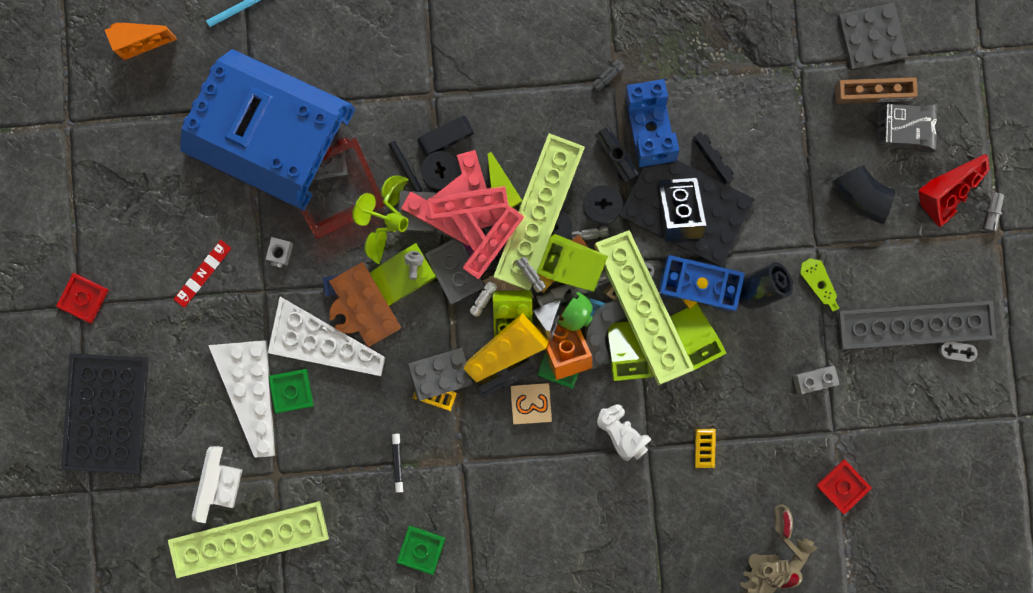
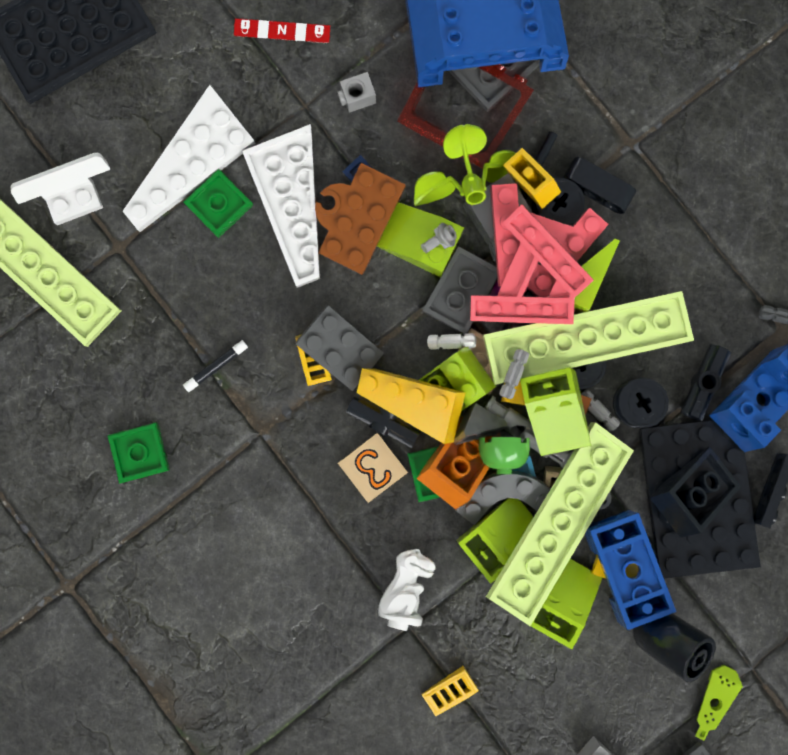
camera: 55 degrees right, 0 degrees up
(413, 179) = (532, 178): none -> yellow brick

